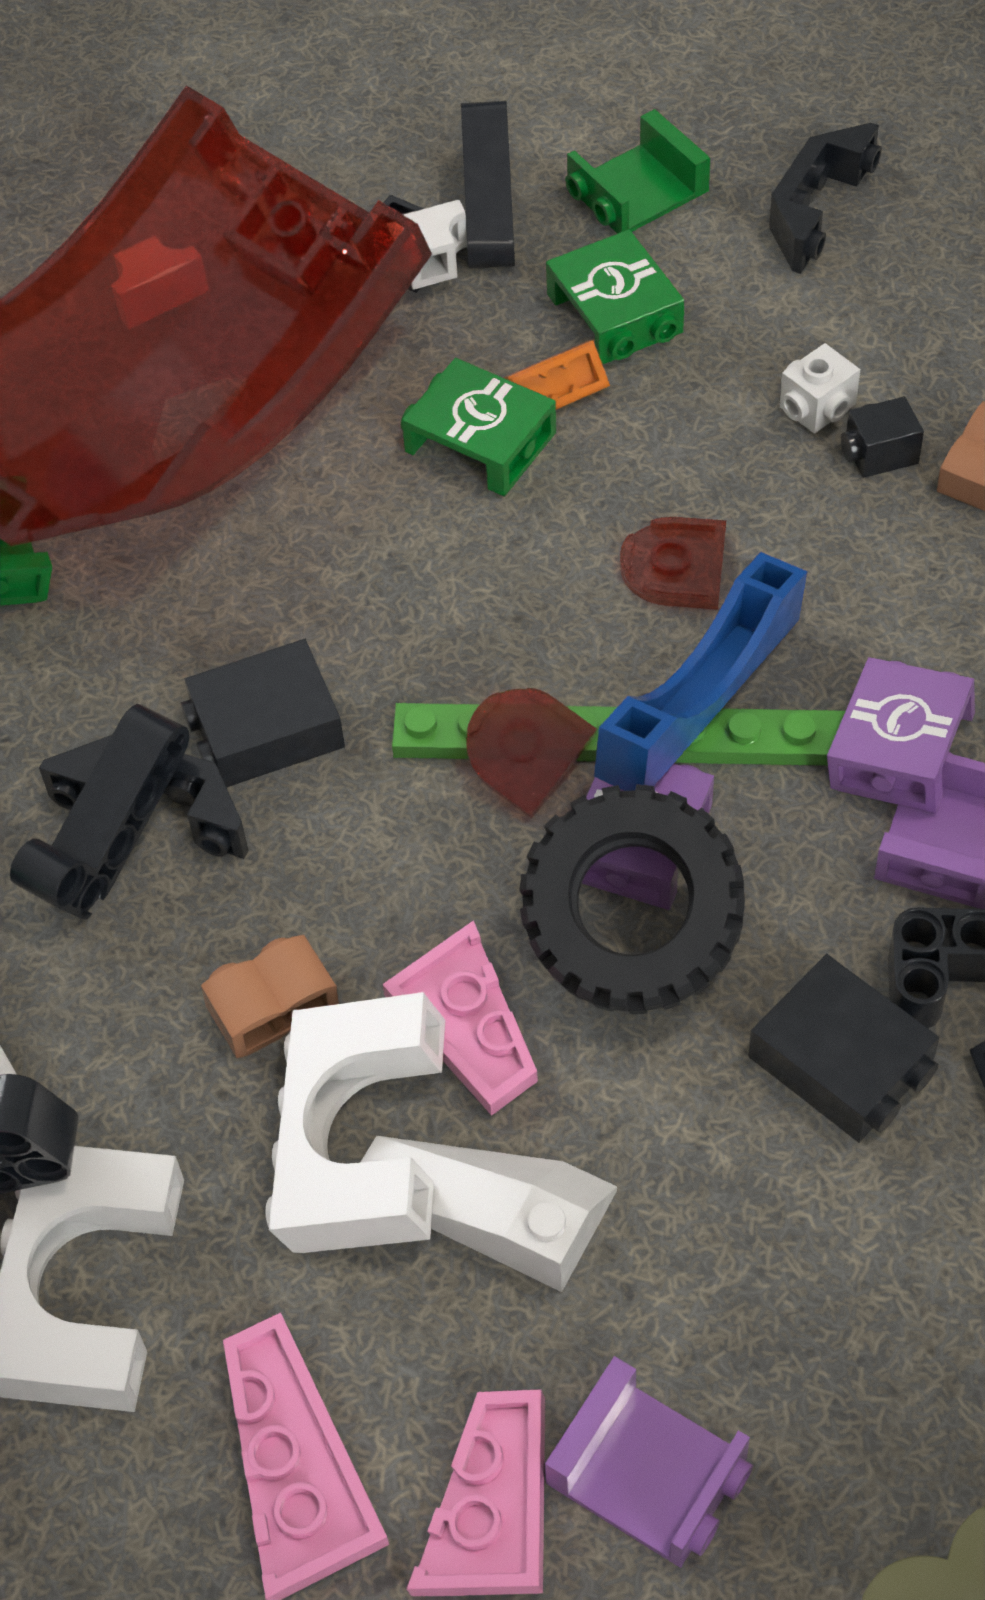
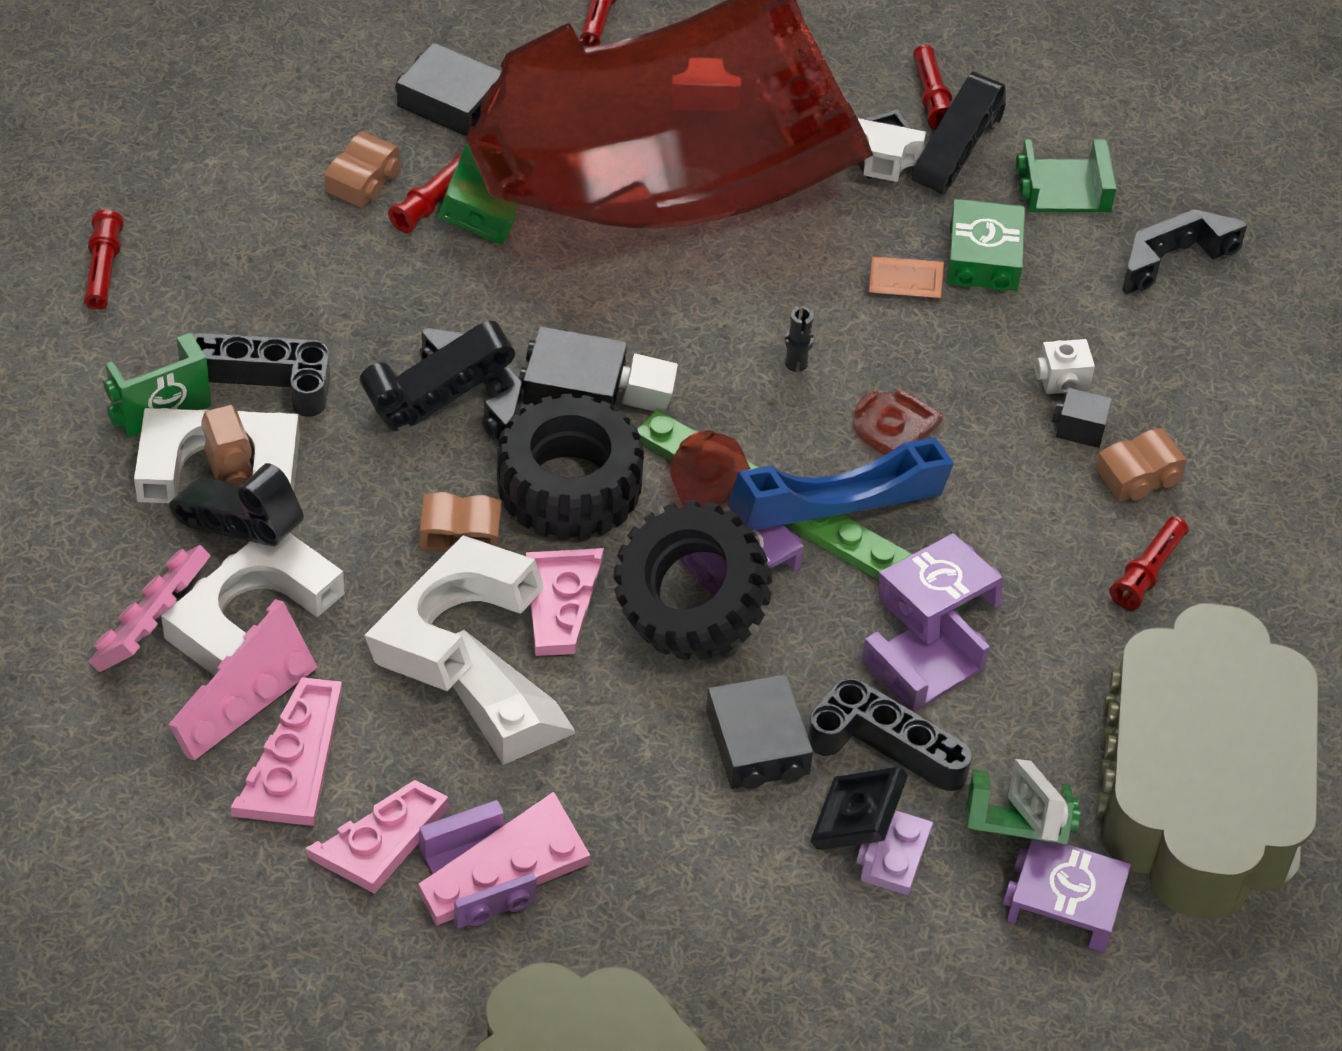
camera: 25 degrees right, 5 degrees down
(156, 1402) = (247, 682): none -> bright pink wing
(343, 781) = (563, 503): none -> black tyre
(367, 675) = (648, 383): none -> white brick
(422, 158) = (936, 96): none -> red pin
(483, 420) = (838, 277): green panel -> none
(505, 520) = (799, 338): none -> black pin
(684, 1417) = (535, 841): none -> bright pink wing

